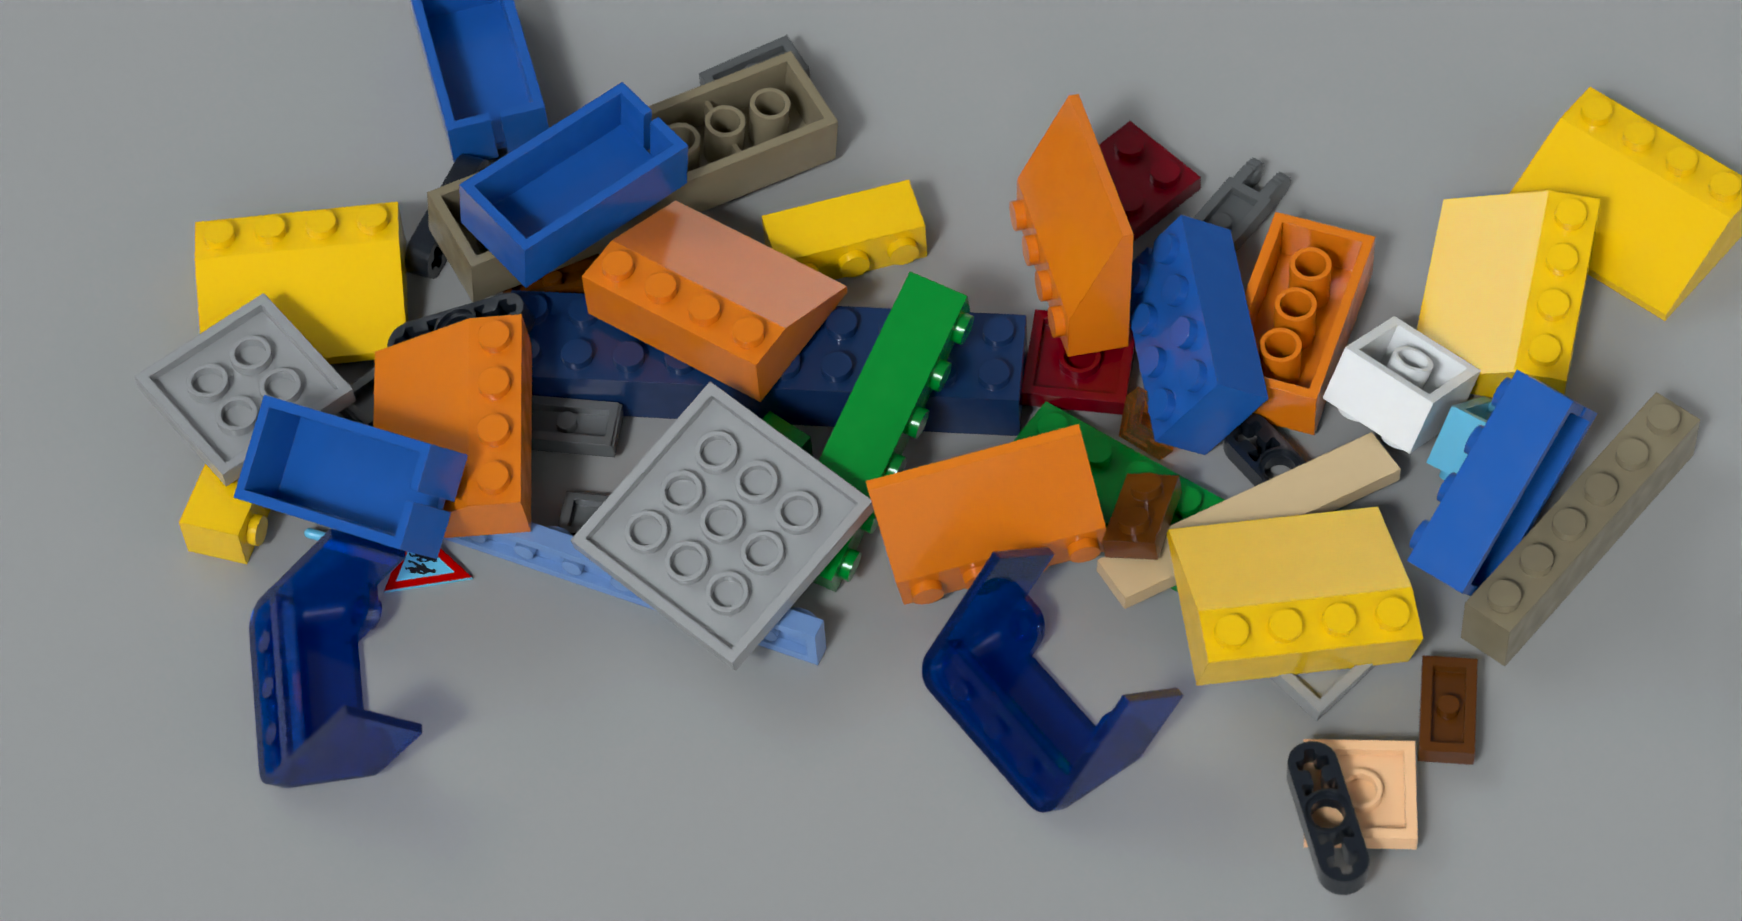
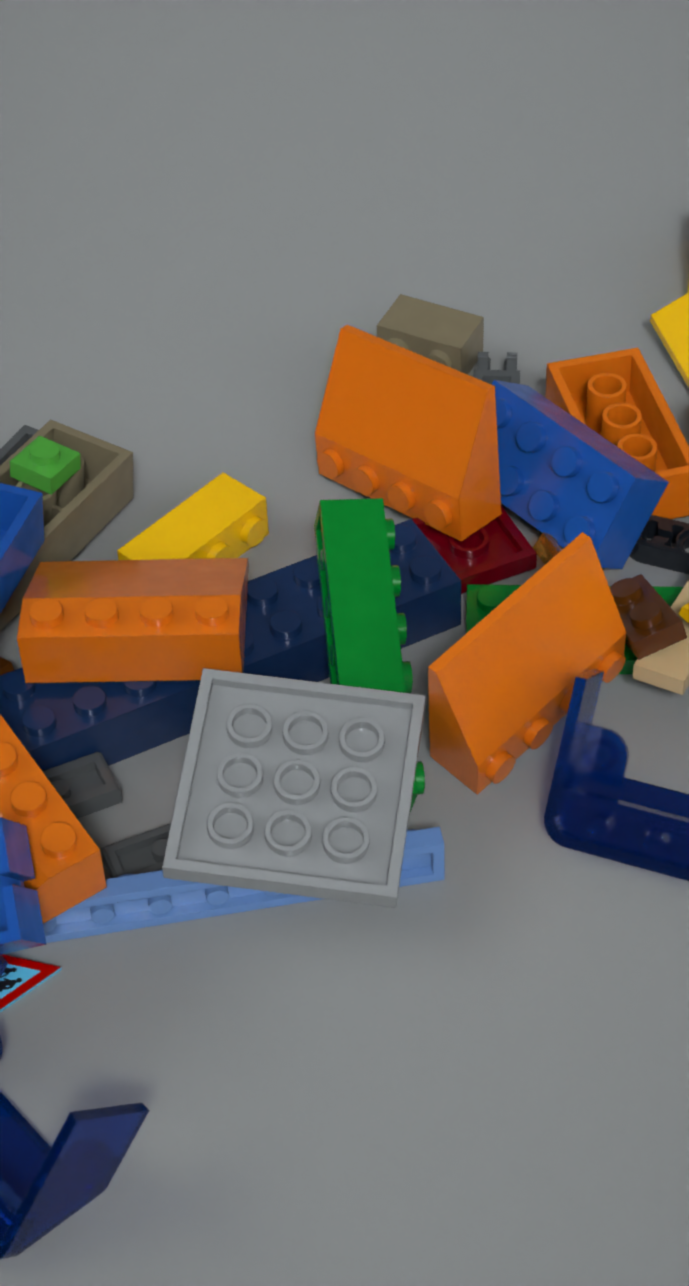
camera: 35 degrees left, 10 degrees down
(745, 101) = (45, 464): none -> bright green plate
(1219, 119) = (434, 332): none -> dark tan brick

